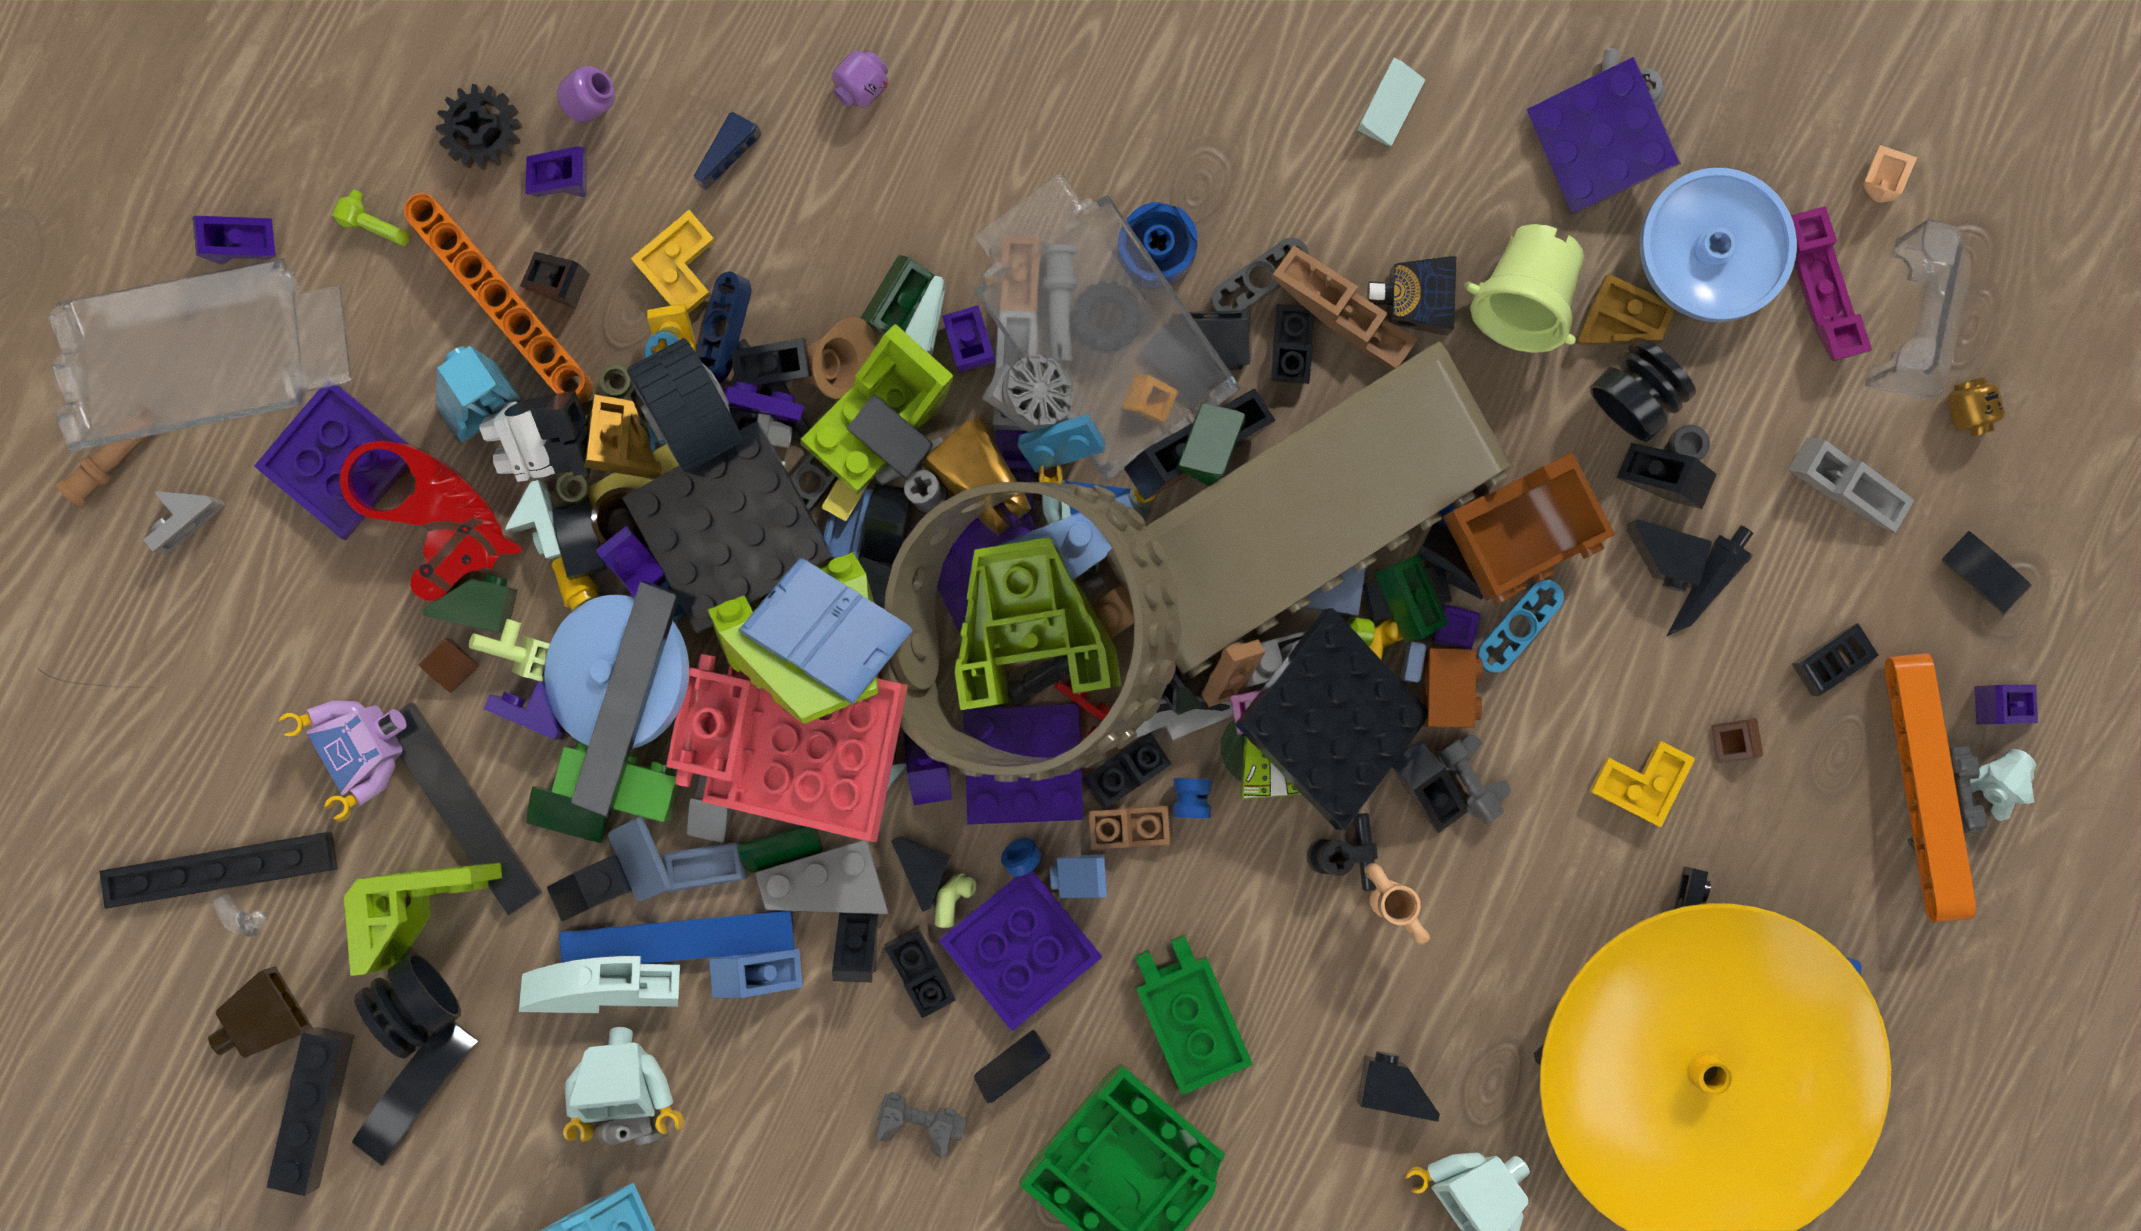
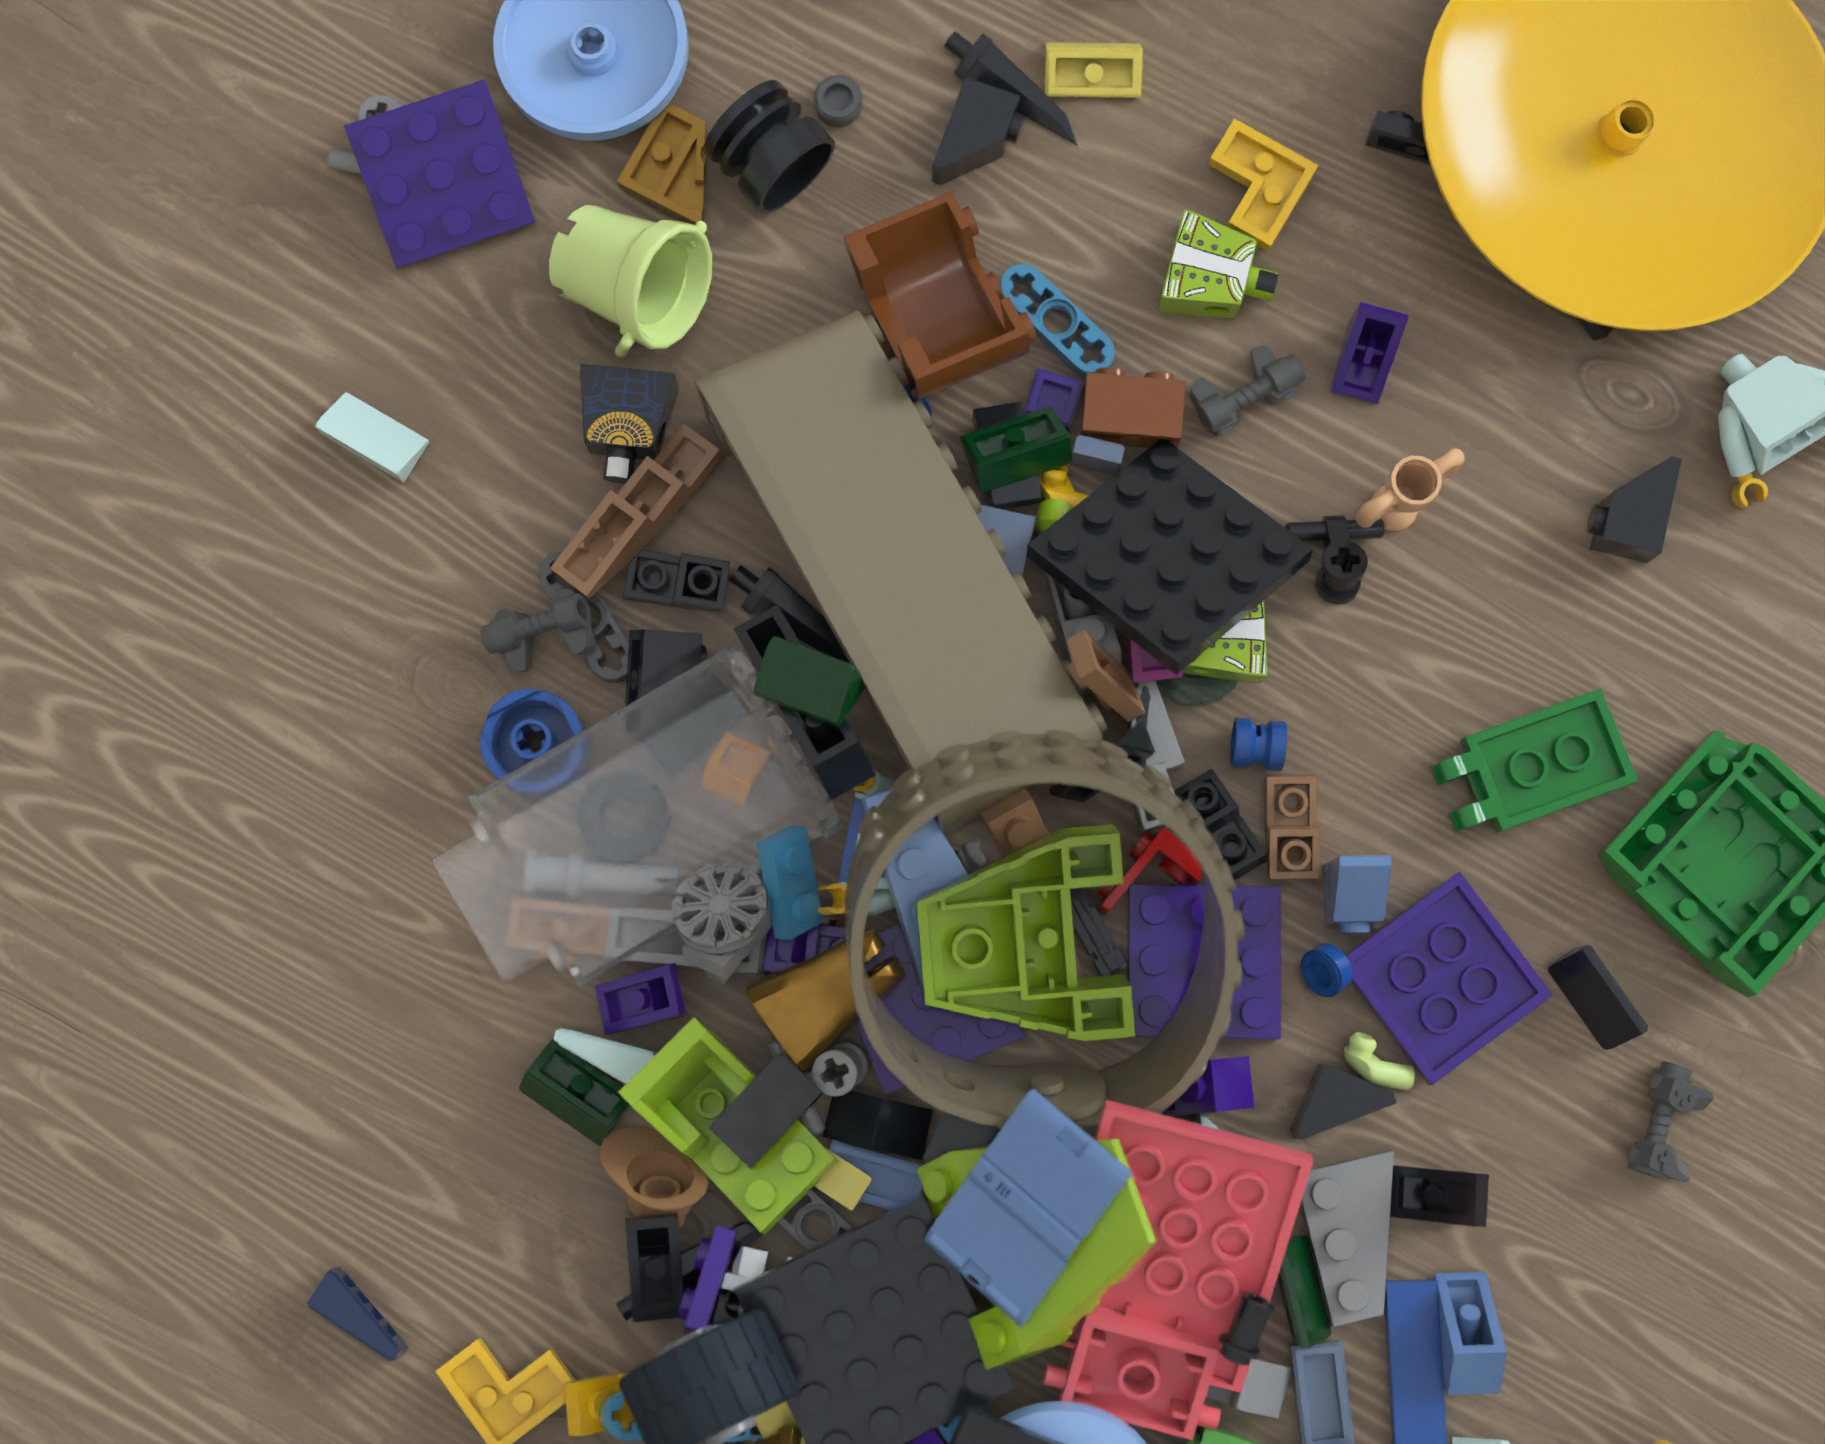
camera: 90 degrees left, 5 degrees down
(719, 300) = (579, 1342): dark blue beam -> none
(737, 796) = (1246, 1329): none -> black pin
(859, 79) = (277, 1127): medium lavender head -> none
(920, 972) = (1470, 1112): black slope -> none
(1244, 223) = (515, 631): none -> dark grey piece
(1287, 417) = (802, 617): none -> black bar
(1430, 786) = (1254, 444): black slope -> none
(1443, 551) = (957, 405): black slope -> none
(1508, 872) = (1368, 352): none -> dark purple slope
(1568, 746) = (1212, 270): none -> lime torso
(1667, 475) = (876, 127): black slope -> none
(1730, 645) = (1093, 69): none -> light yellow slope
(1737, 740) = (1212, 69): reddish brown slope -> none

